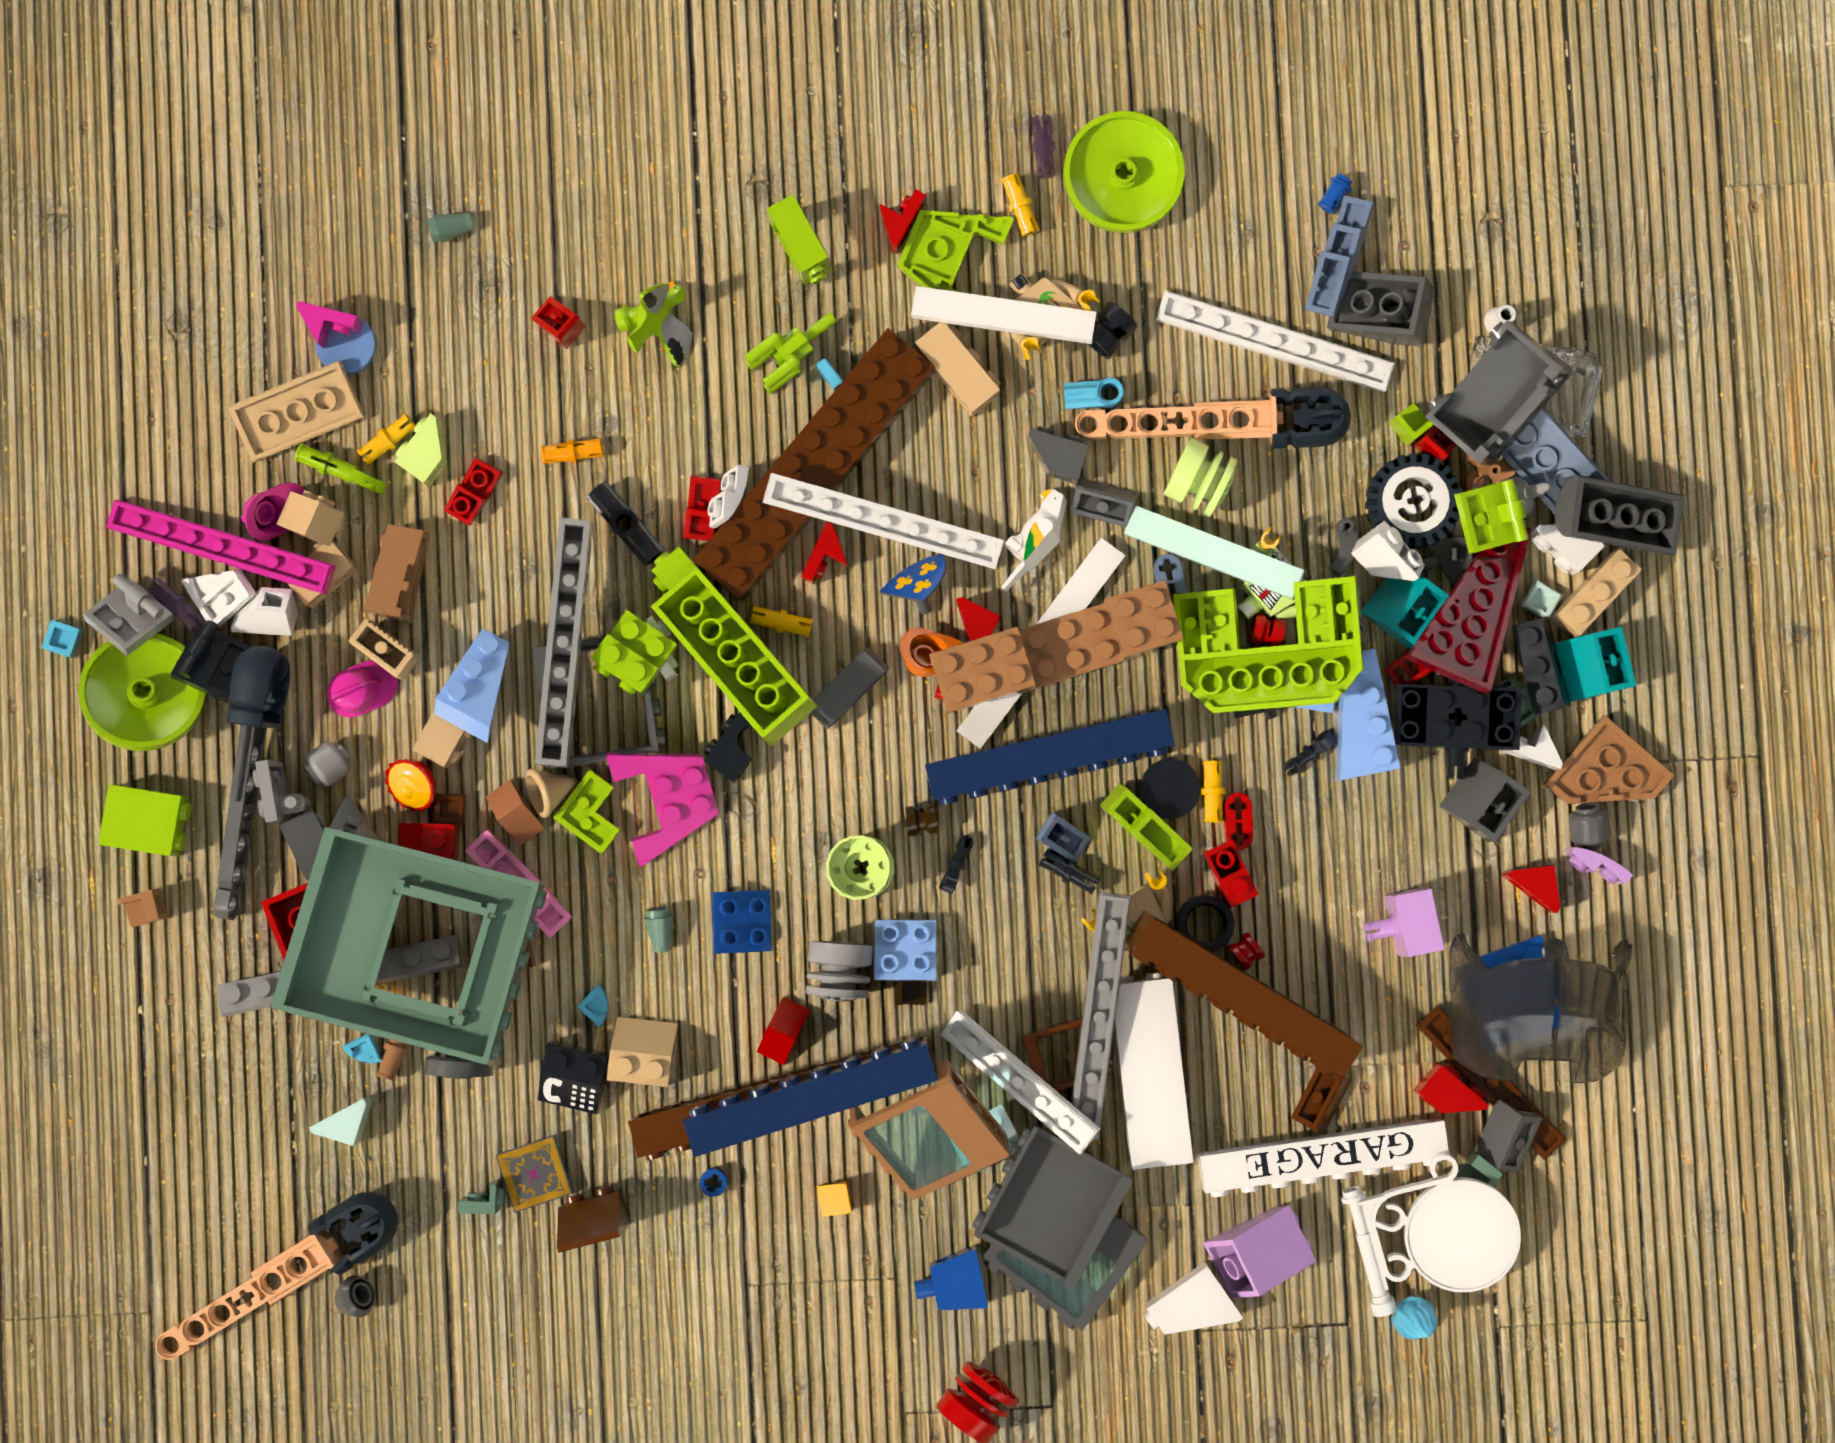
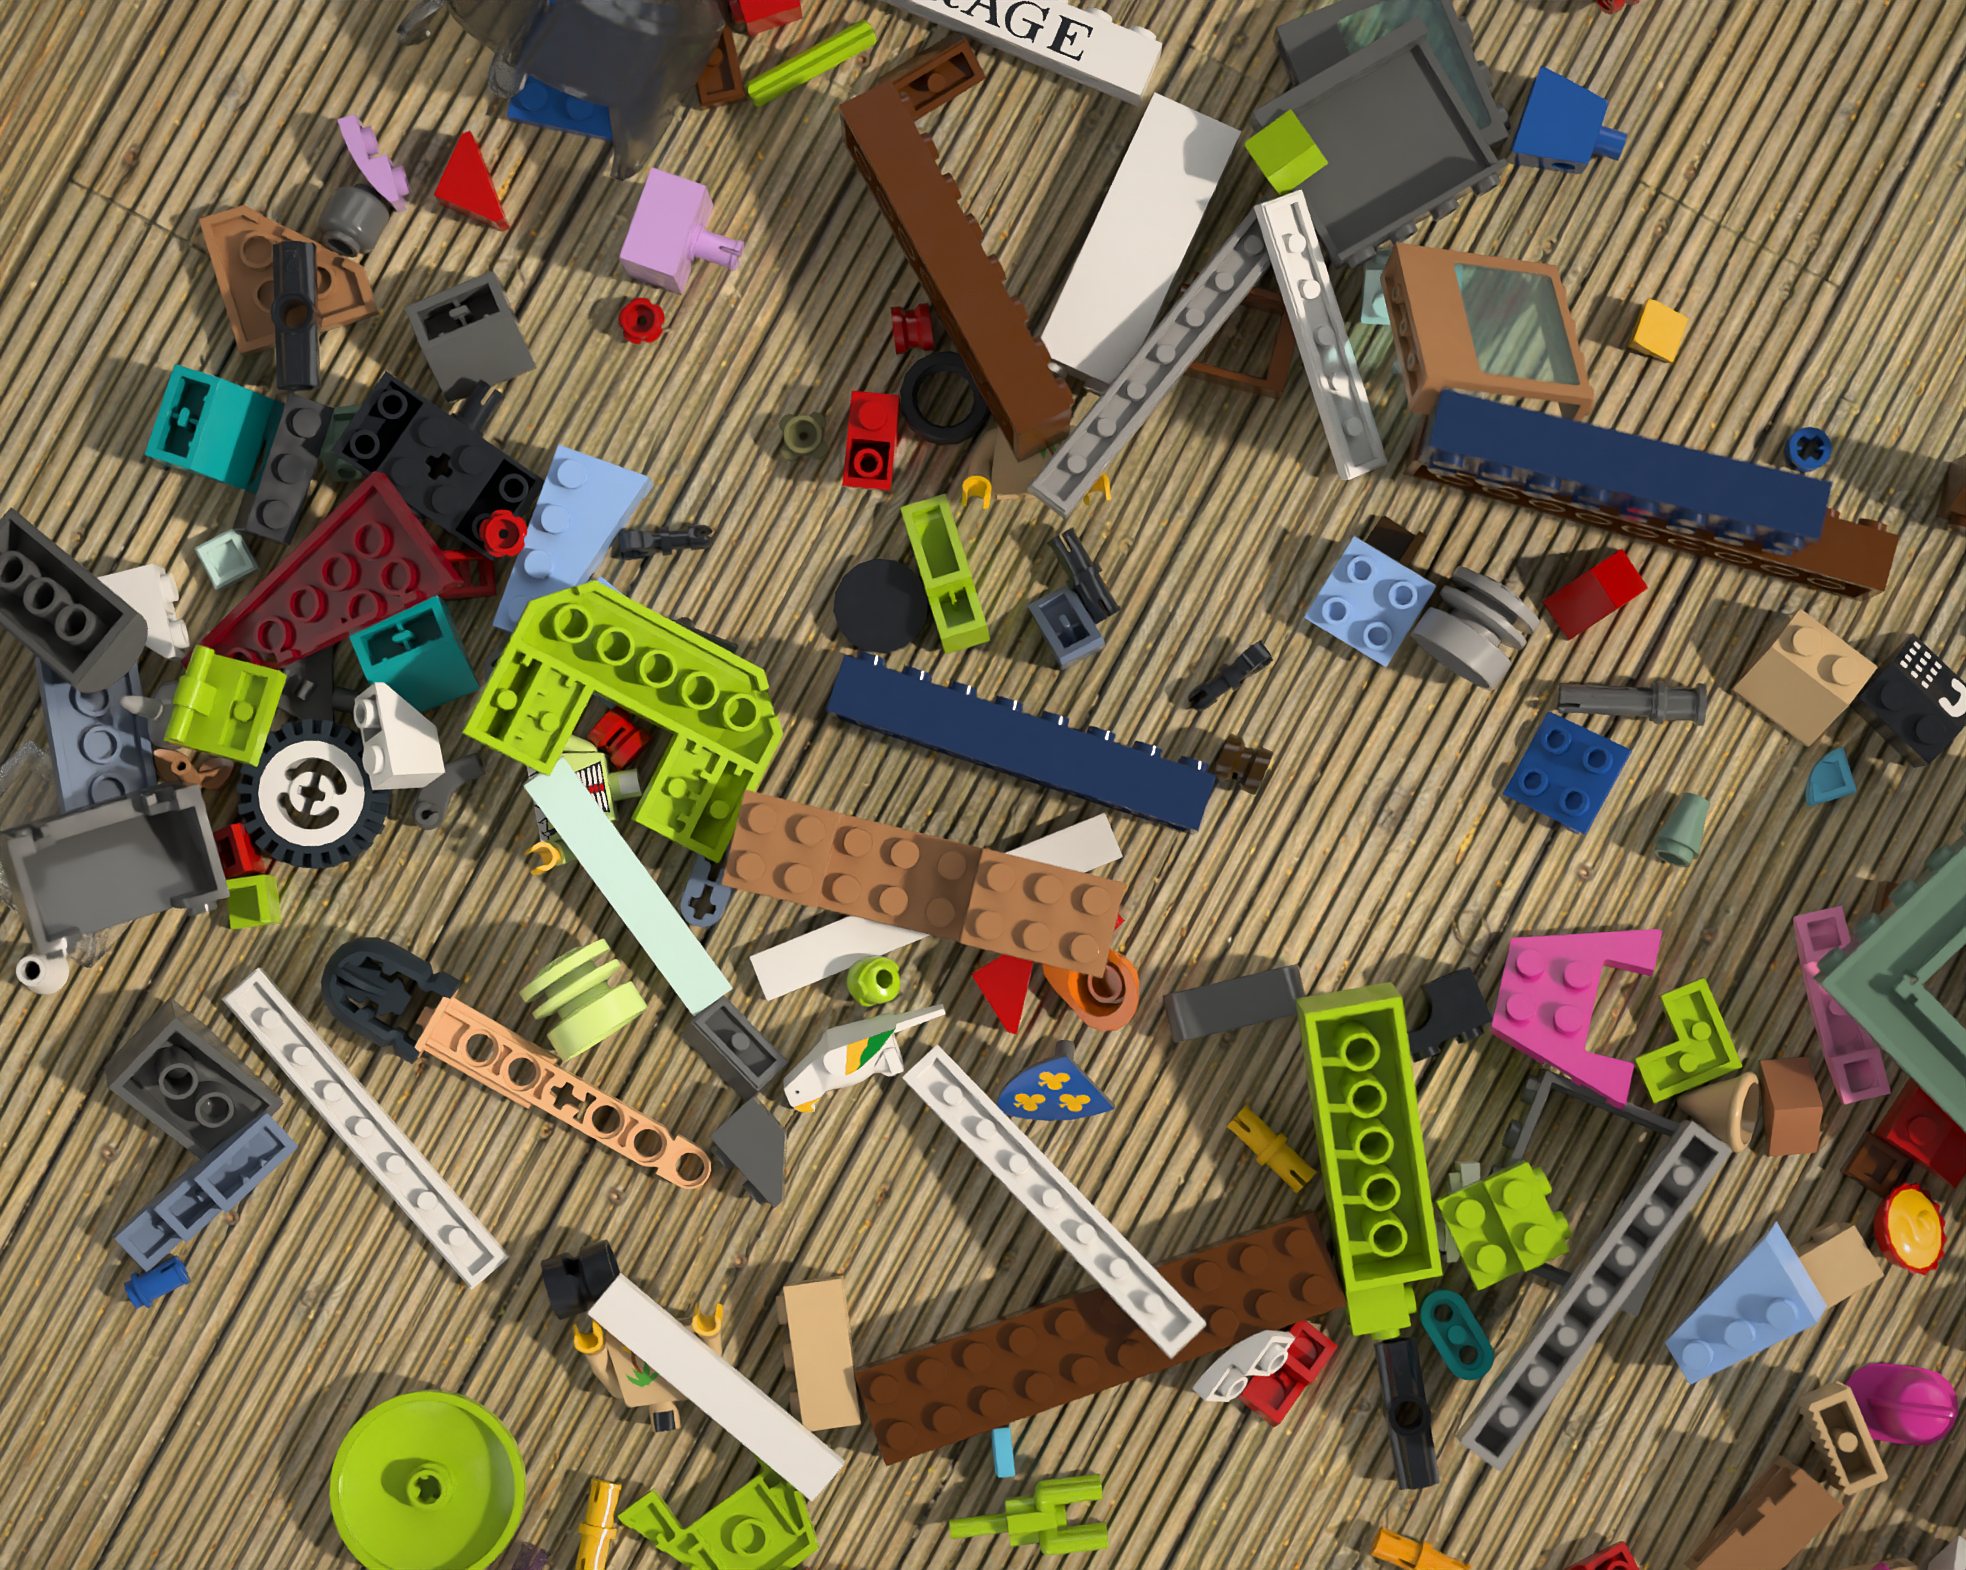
camera: 150 degrees left, 0 degrees up
(624, 582) = (1456, 1332): none -> teal plate
(715, 989) = (1656, 702): none -> dark grey pin
(826, 547) = (1148, 1214): red slope -> none
(842, 867) = (1393, 749): yellowish green wheel -> none
(1050, 582) = (873, 980): none -> lime piece
(1088, 394) = (664, 1208): medium azure piece -> none
(1100, 1169) = (1285, 153): none -> lime panel
(1213, 791) = (826, 566): yellow pin -> none
(1245, 821) = (806, 503): red beam -> none
(1278, 857) = (794, 426): none -> olive plate
(1392, 1067) = (811, 63): none -> lime axle
(1397, 858) = (632, 312): none -> red plate
(1400, 692) = (516, 531): none -> red plate
(1540, 751) = (354, 360): white slope -> none
(1595, 594) = (150, 522): tan brick -> none
(1599, 768) = (296, 286): none -> black piece

